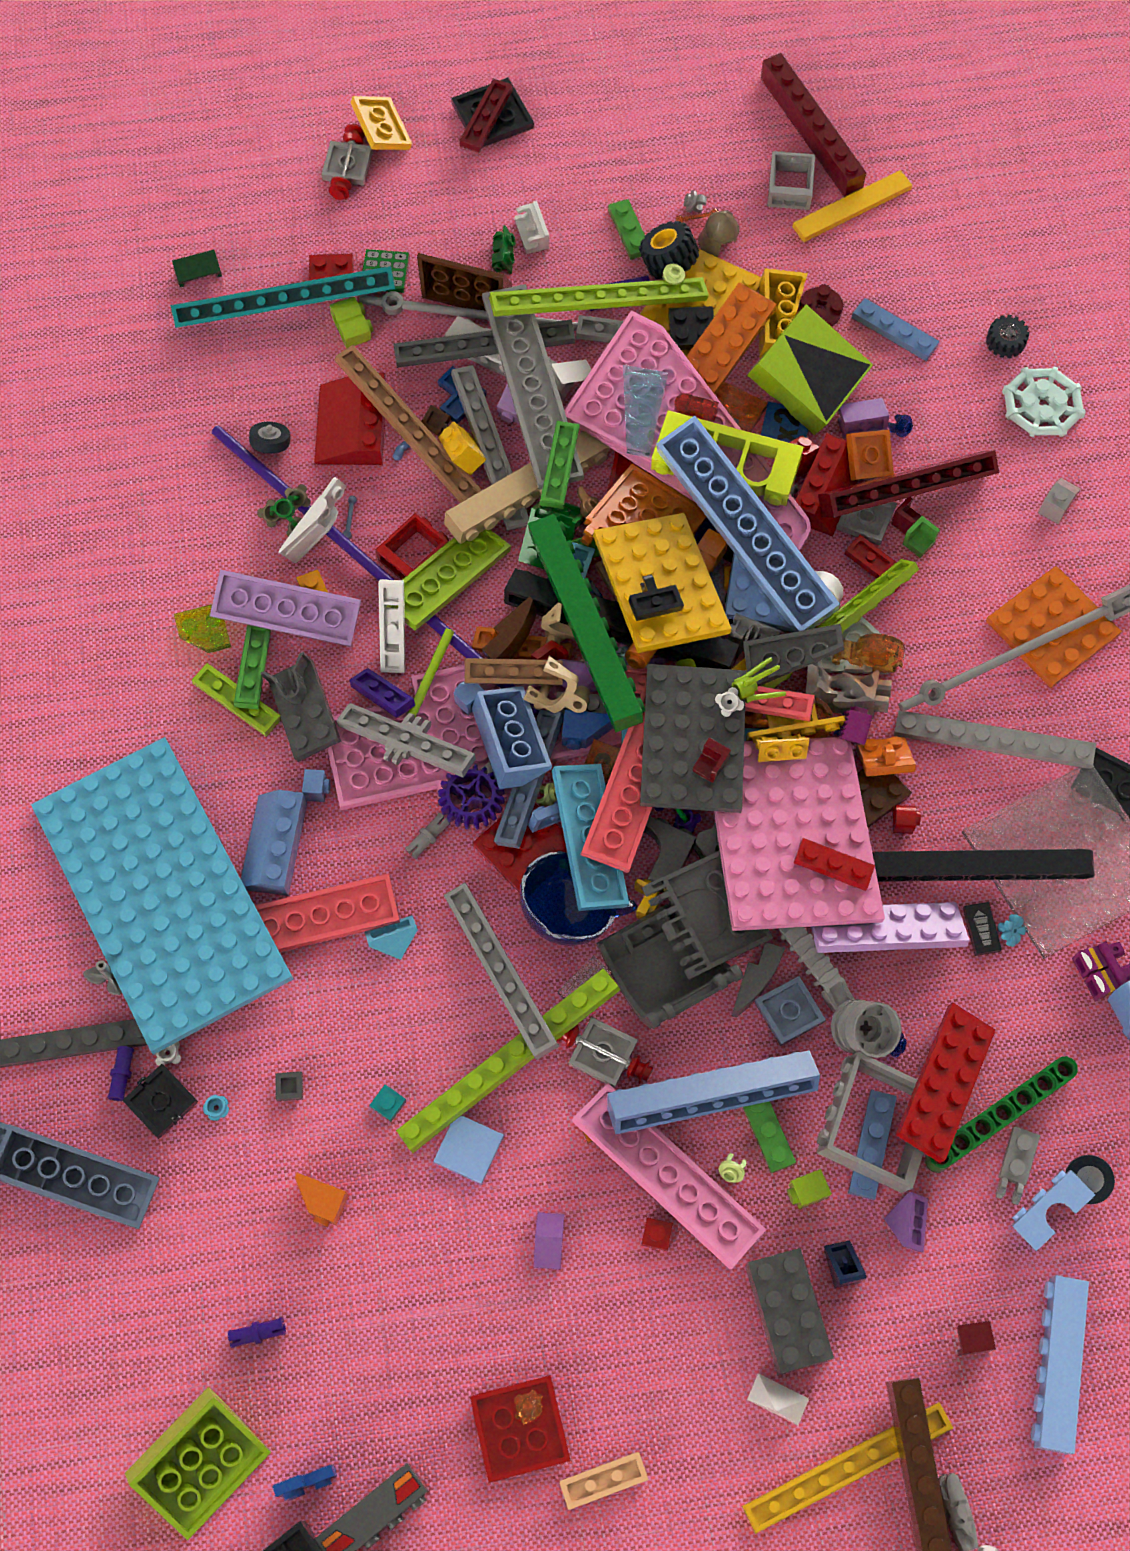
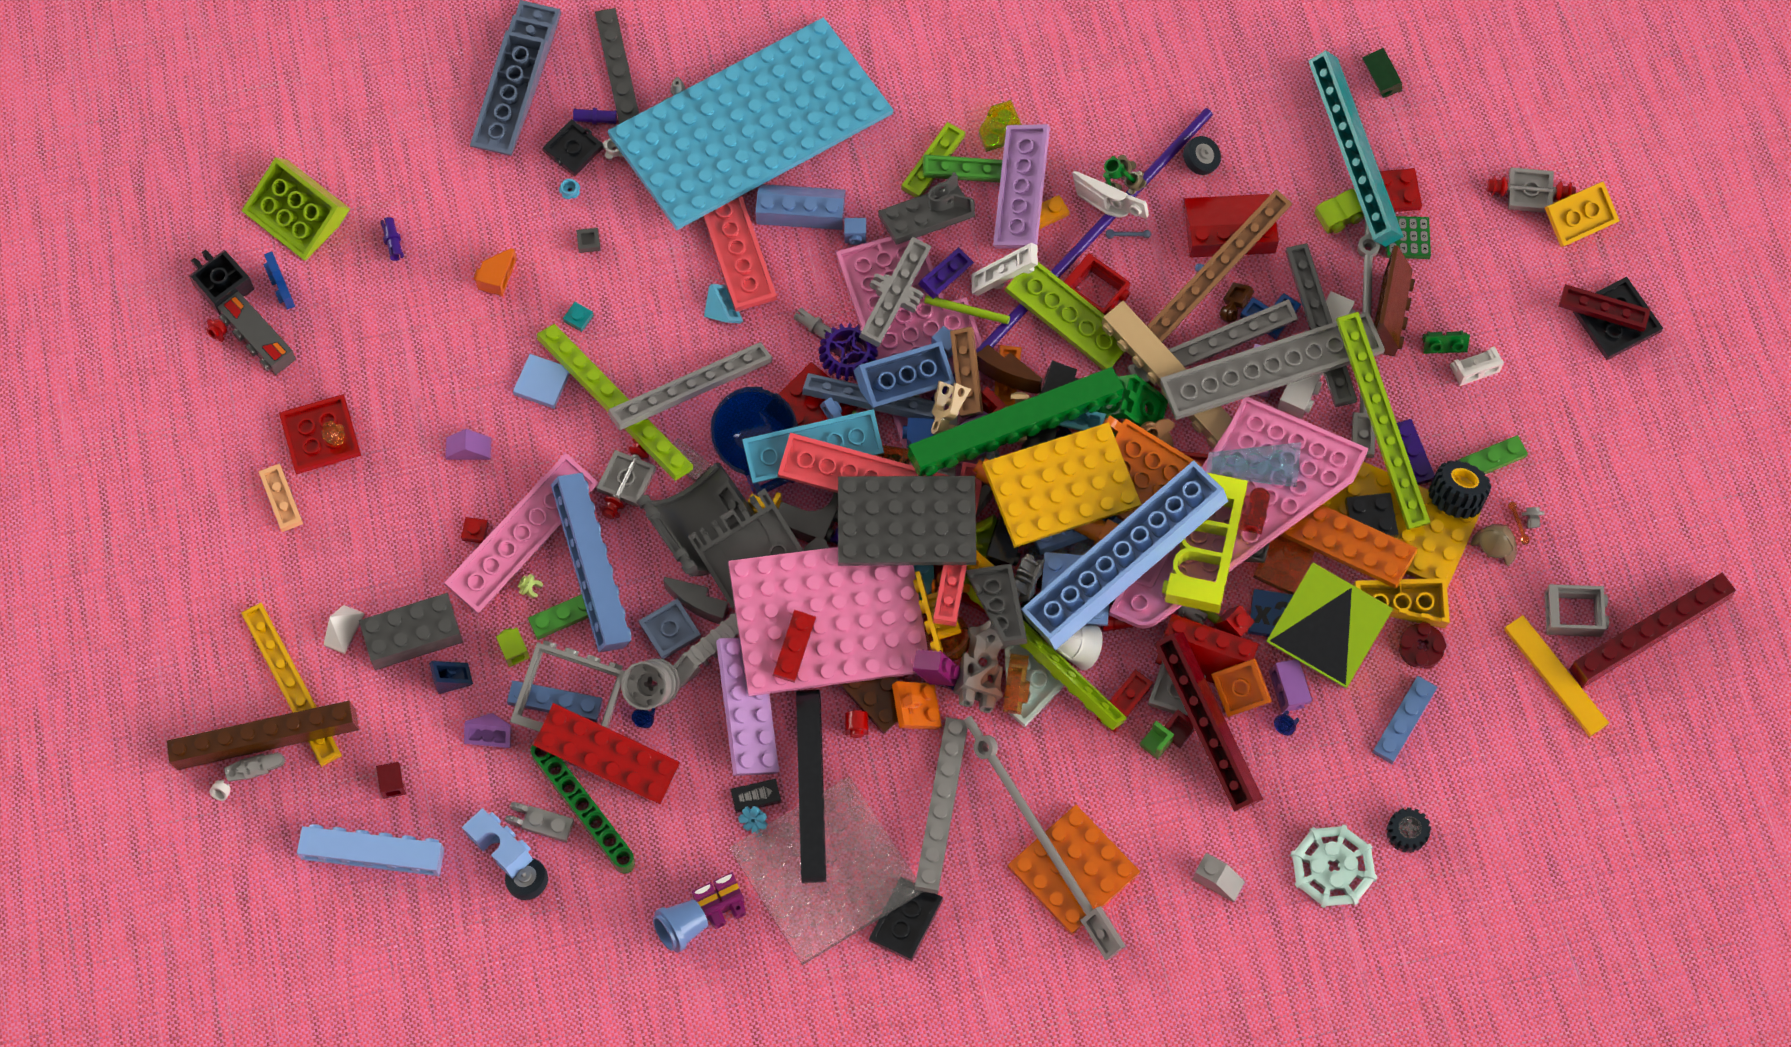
camera: 85 degrees right, 0 degrees up
(462, 448) = (1203, 315): yellow brick -> none
(559, 465) = (1182, 393): bright green tile -> none
(572, 371) = (1300, 404): white sticker -> none
(655, 601) = (1029, 470): black plate -> none
(673, 274) = (1425, 491): yellowish green plate -> none
(711, 760) = (877, 530): dark red panel -> none
(722, 700) = (937, 542): white plate -> none
(747, 685) = (955, 556): lime plant -> none
(785, 749) = (903, 590): yellow hinge -> none

